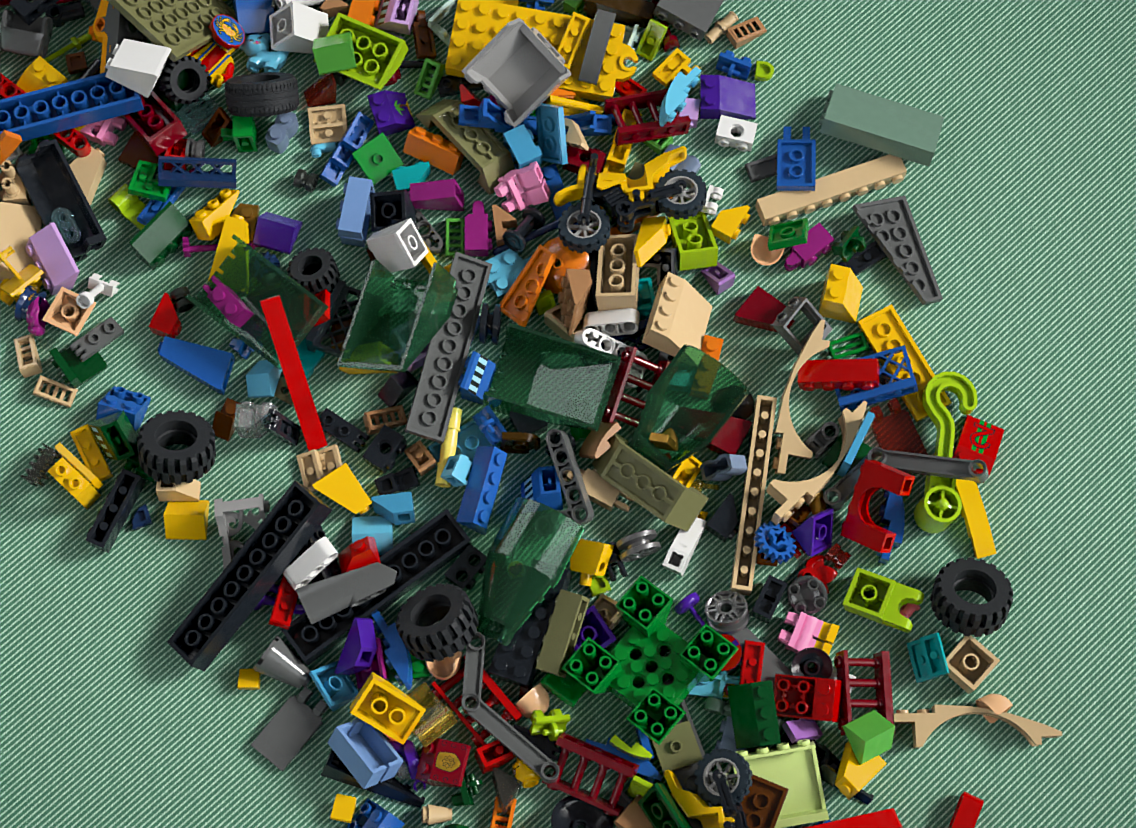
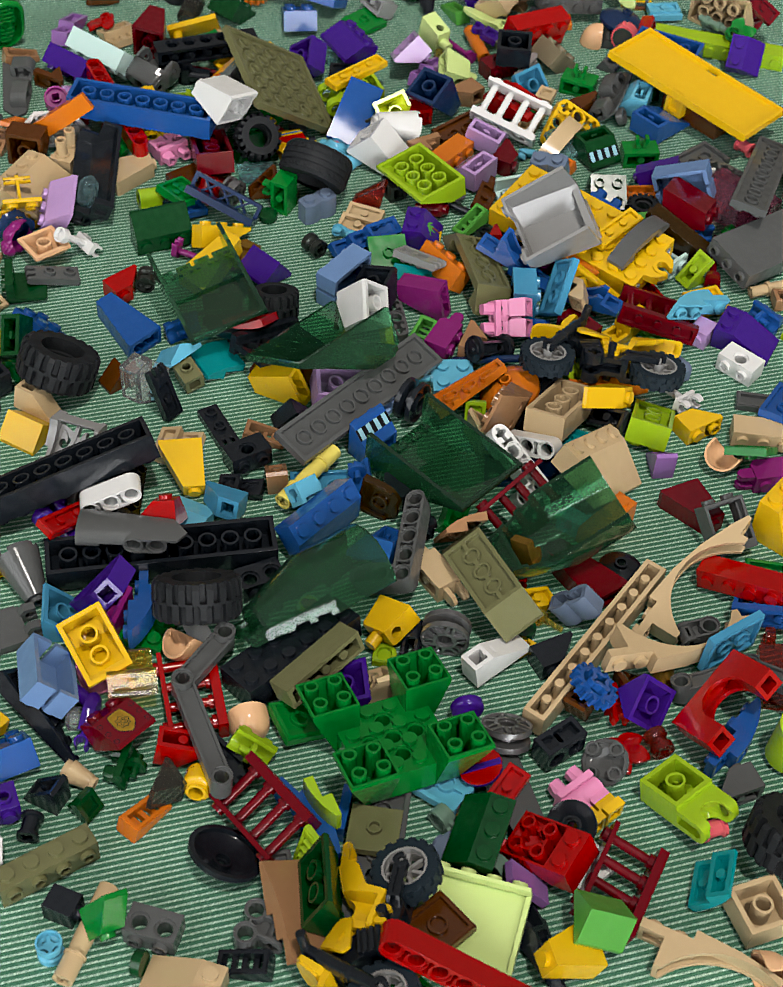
camera: 25 degrees right, 25 degrees down
(227, 31) = (316, 123): tile -> none
(228, 302) = (182, 285): magenta hinge -> none
(243, 161) = (268, 215): none -> dark green tile
(293, 372) = (202, 351): red tile -> none
(334, 53) = (396, 164): bright green slope -> none
(412, 157) = (418, 258): none -> light grey hinge
(910, 562) = (743, 783): none -> dark grey slope

